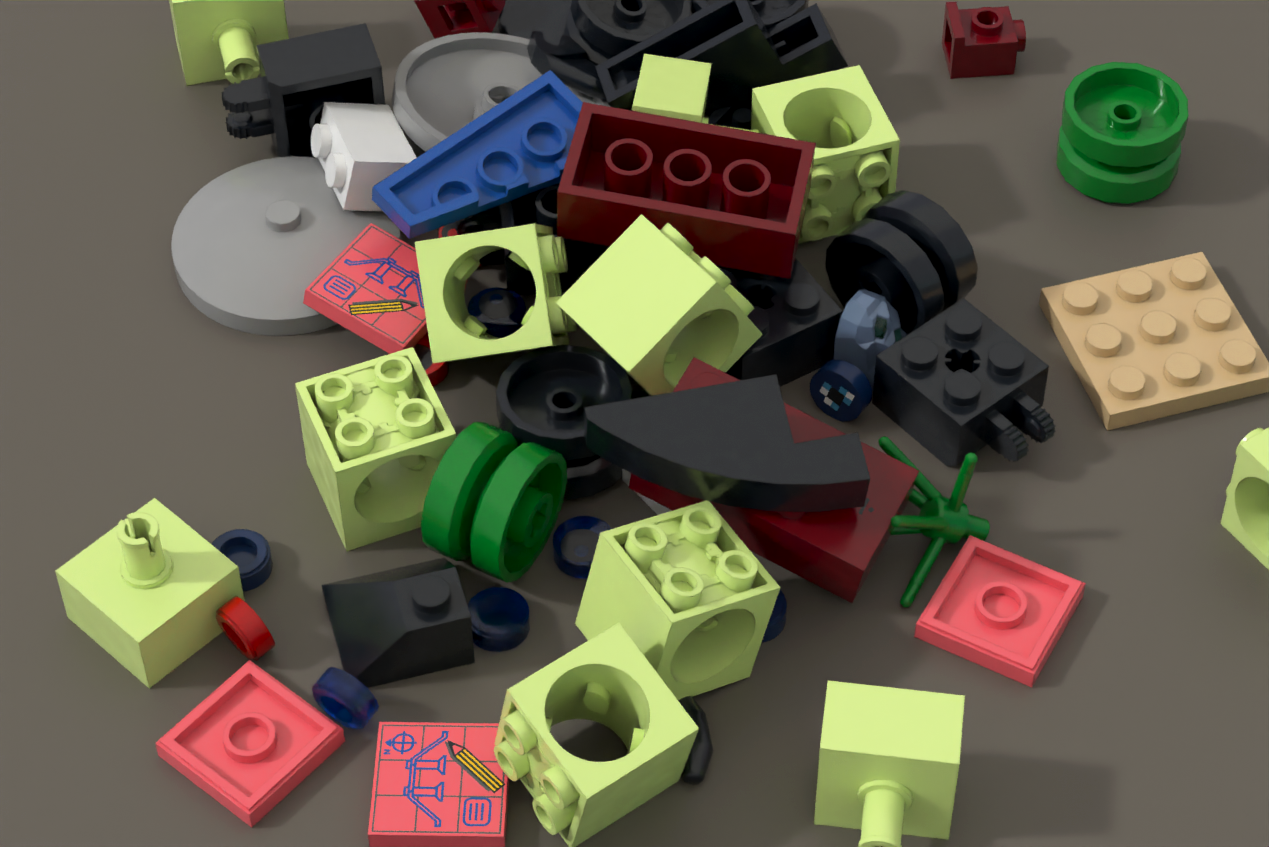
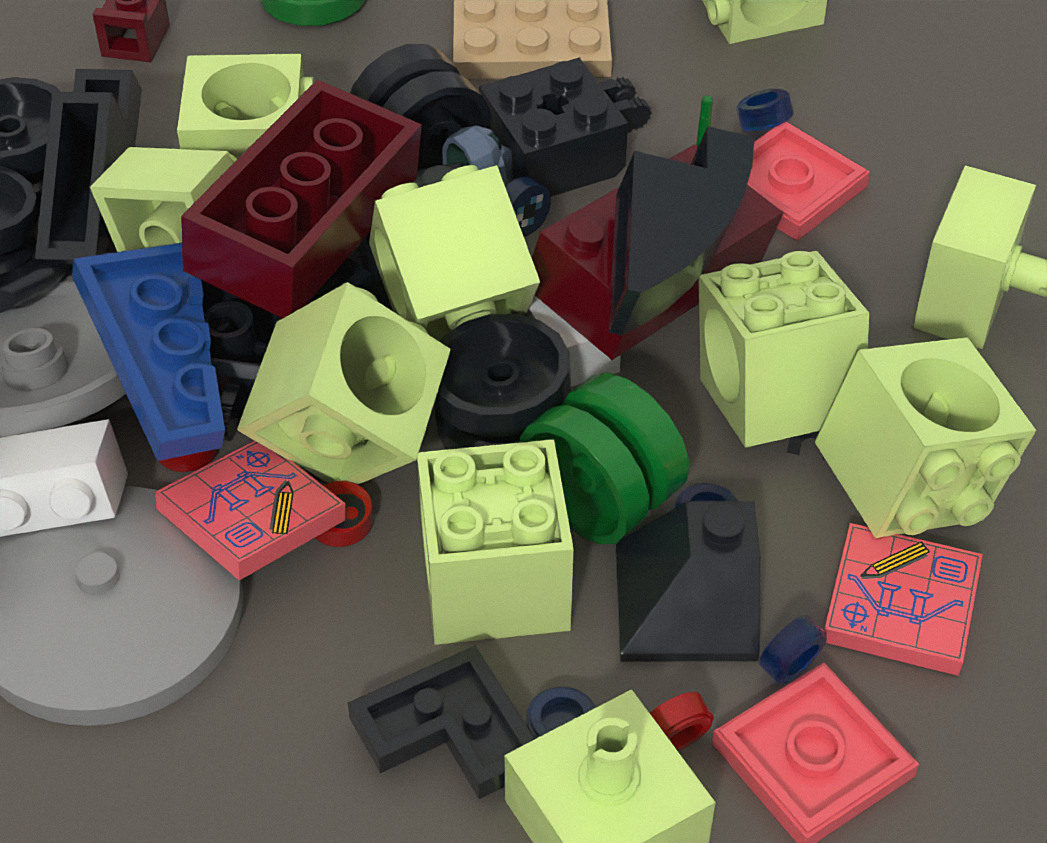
camera: 75 degrees left, 0 degrees up
(225, 472) = (441, 704): none -> black plate
(1093, 562) = (764, 109): none -> clear blue tile

